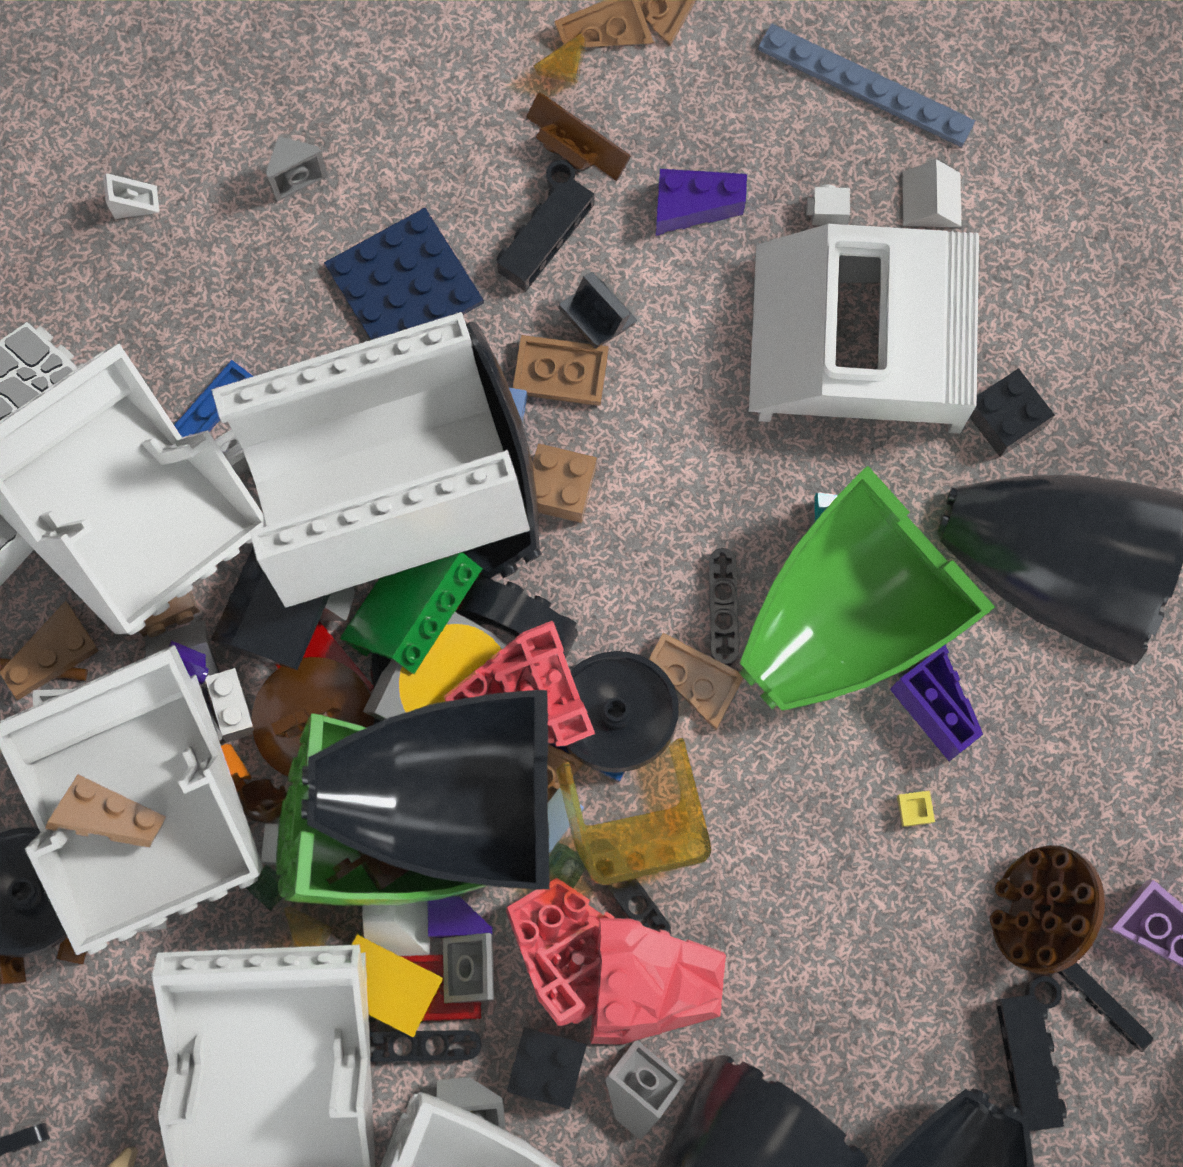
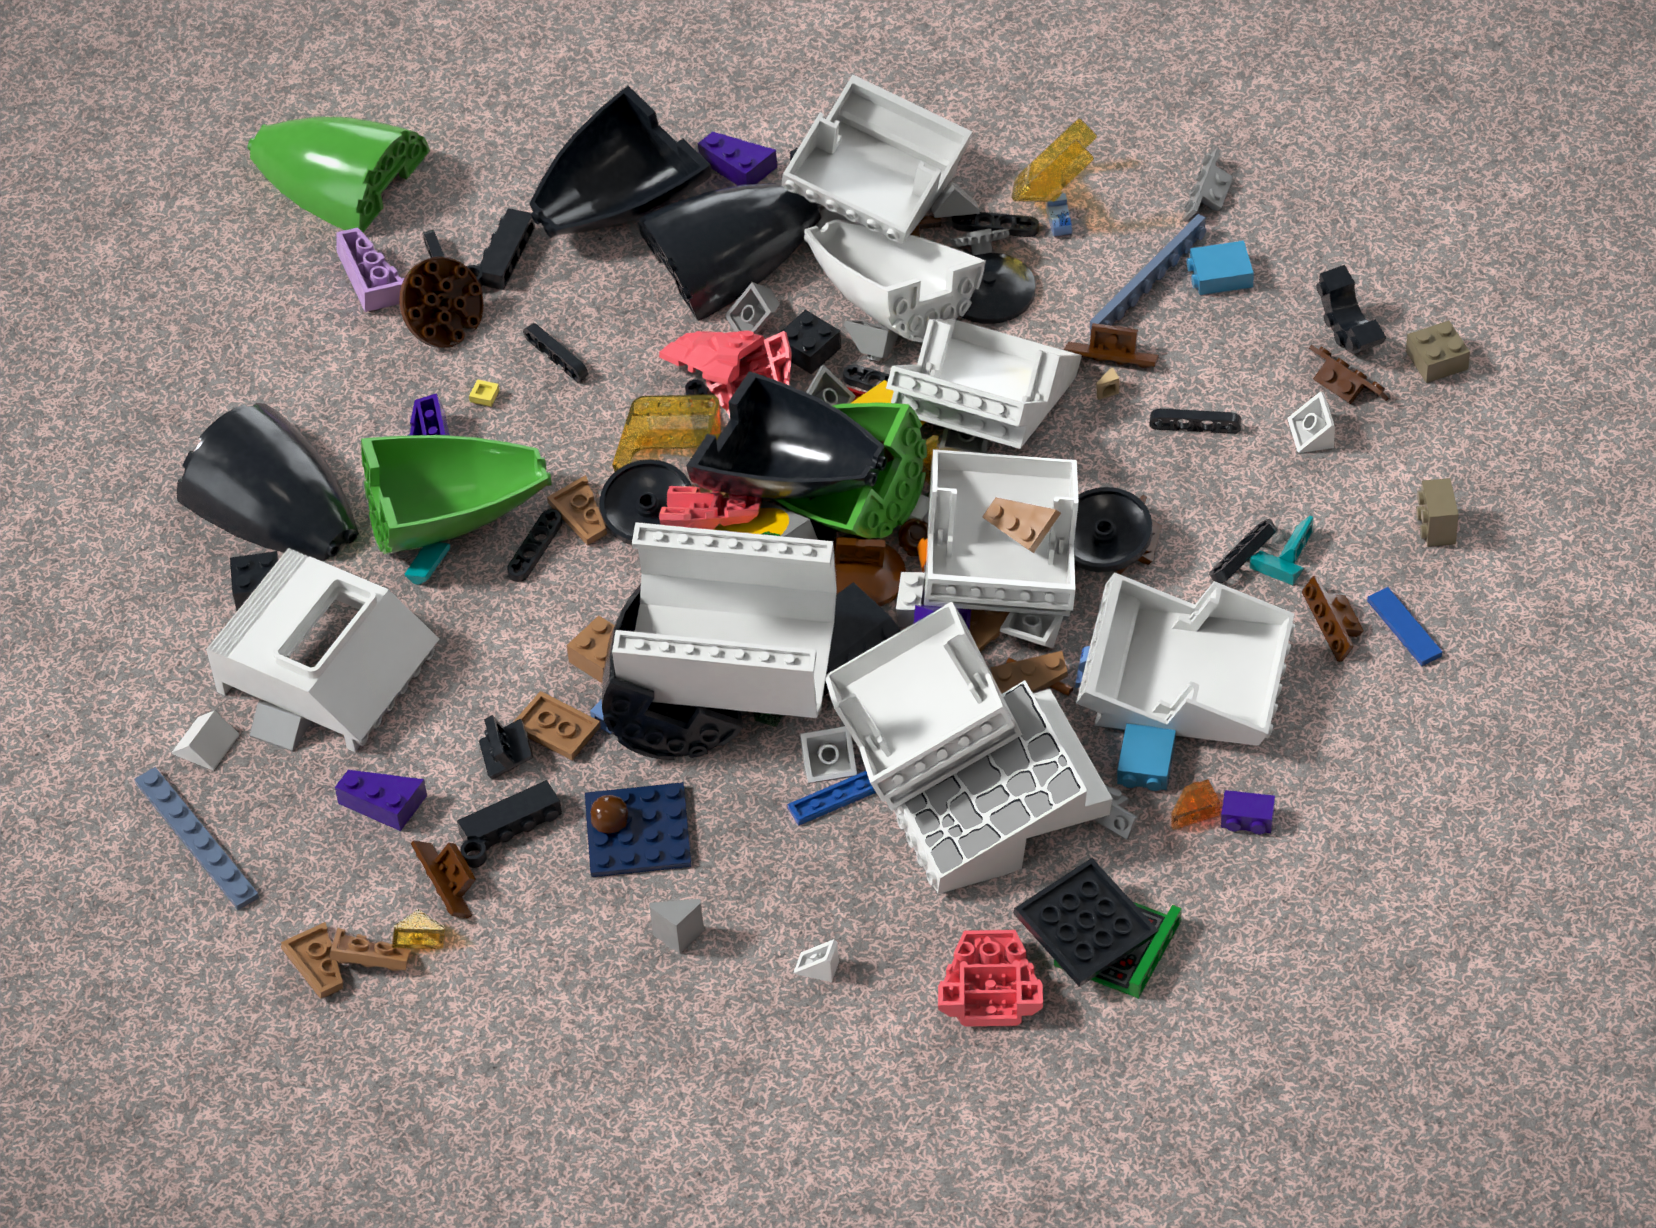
camera: 150 degrees left, 25 degrees down
(435, 270) = (609, 814): none -> reddish brown hair
(829, 205) = (285, 758): white brick -> none
(864, 912) = (556, 352): none -> black beam

